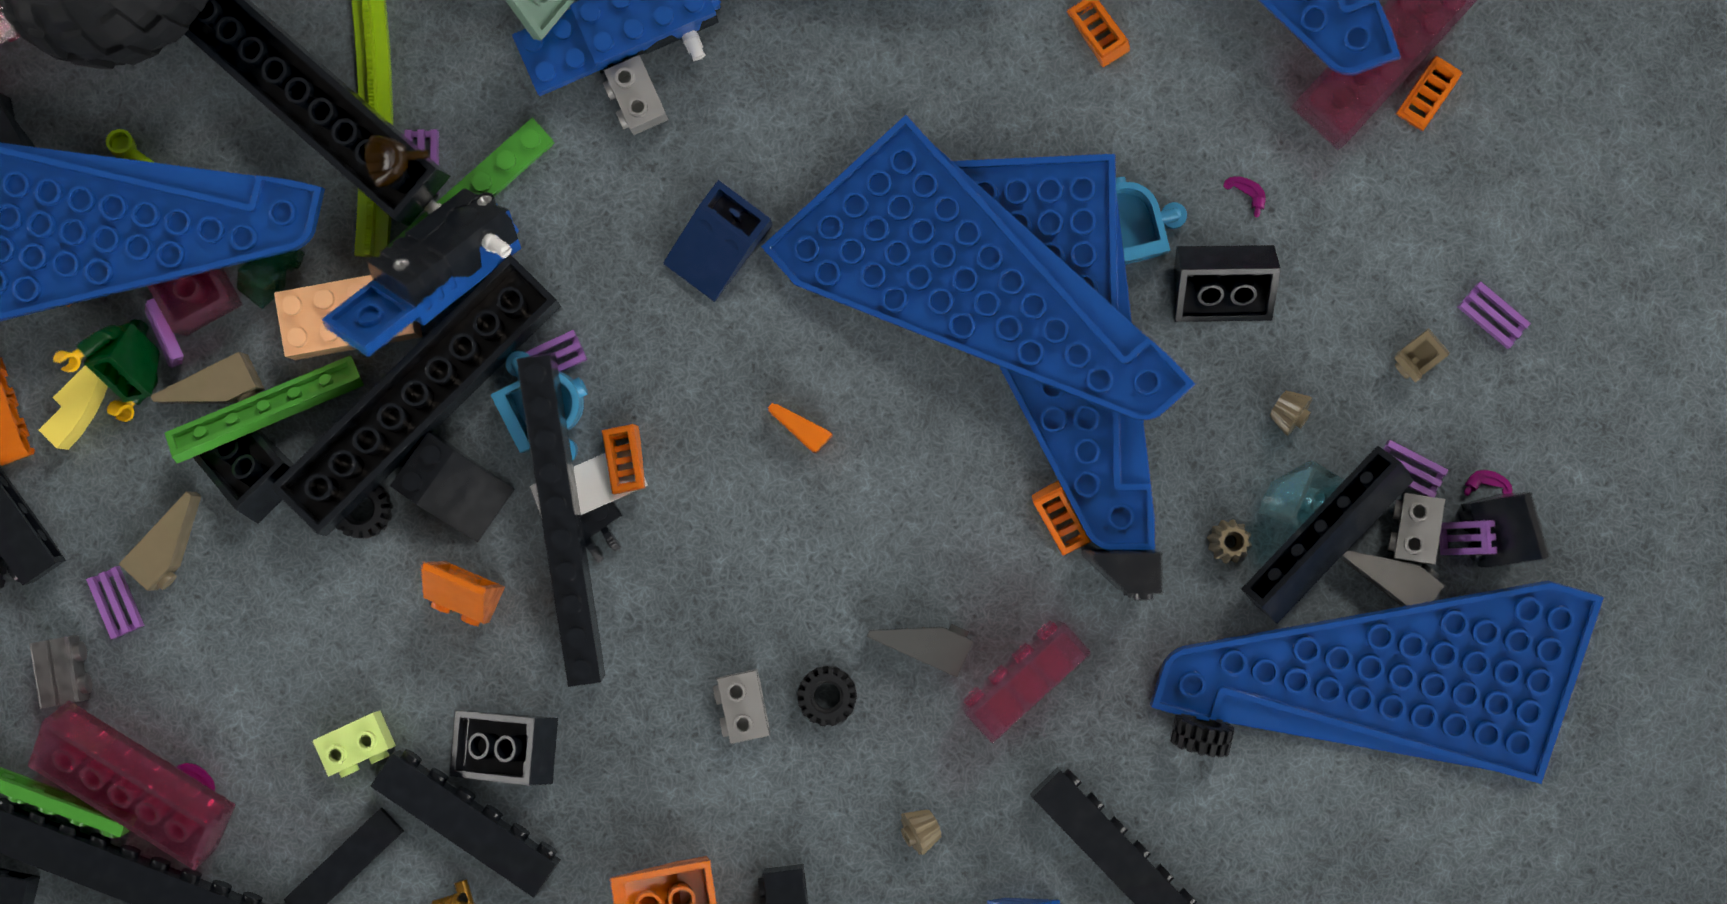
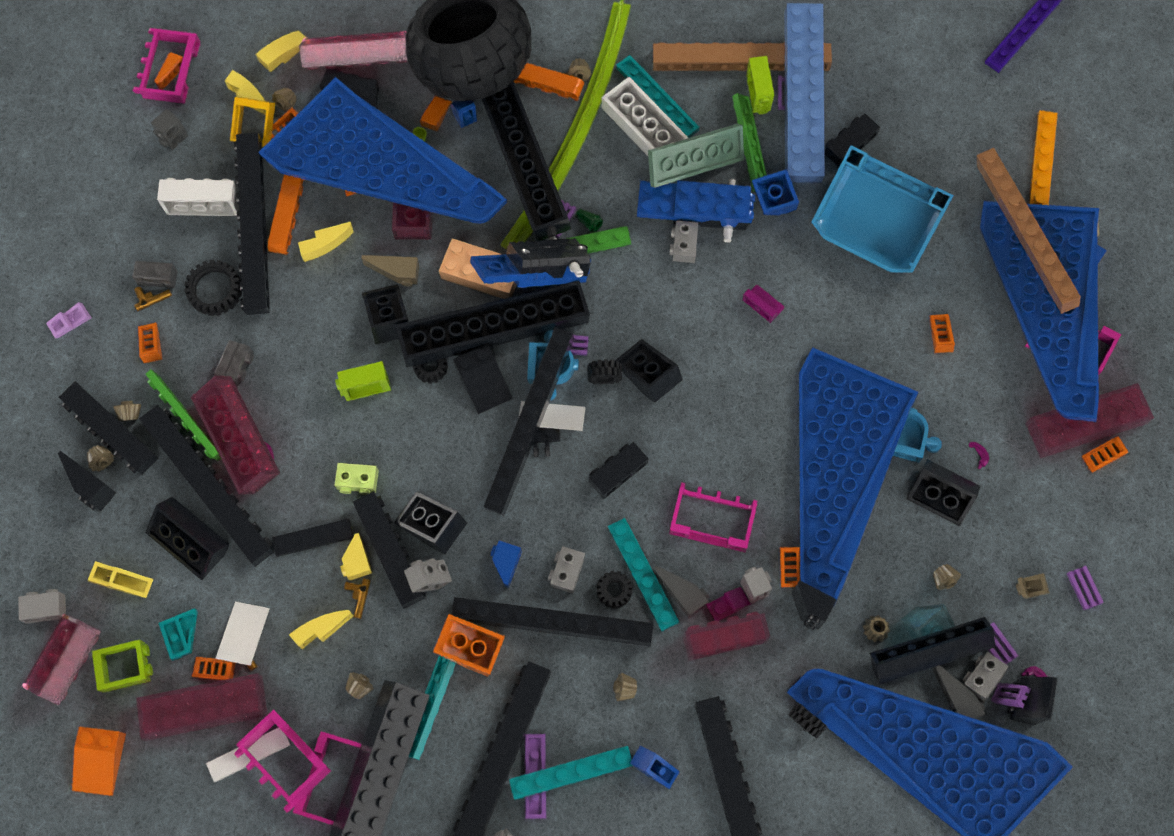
camera: 25 degrees right, 15 degrees down
(102, 605) = (283, 330): medium lavender tile -> none
(120, 359) = (359, 232): dark green torso -> none
(124, 94) = (435, 113): none -> orange slope
(163, 333) = (385, 231): medium lavender tile -> none
(163, 547) = (322, 330): dark tan slope -> none
(170, 68) = (464, 112): none -> blue slope
(263, 409) = (412, 291): bright green plate -> none
(267, 275) = (453, 228): clear green brick -> none
(274, 595) = (363, 381): none -> lime window
(388, 159) = (547, 201): dark brown piece -> none
(426, 863) = (355, 560): none -> light yellow slope
(460, 591) = (456, 429): orange slope -> none
(469, 139) = (590, 220): none -> dark green cone
(546, 833) = (427, 575): none -> light grey brick
(609, 438) = (582, 398): orange slope -> none
(629, 376) = (604, 372): none -> black tyre
(646, 744) = (505, 560): none -> blue slope
(693, 333) = (650, 370): none -> black slope
(717, 240) = (687, 330): dark blue slope -> none
(733, 514) = (618, 469): none -> black brick
(763, 795) = (553, 621): none -> black brick
(807, 128) = (763, 303): none -> magenta panel
(809, 433) = (679, 448): orange slope -> none
(855, 648) = (643, 574): none -> teal plate
(920, 543) = (731, 543): none -> dark pink hinge
(945, 260) = (800, 400): blue wing -> none
(1002, 624) = (728, 604): none -> magenta slope
(1028, 578) = (756, 584): none -> light grey brick

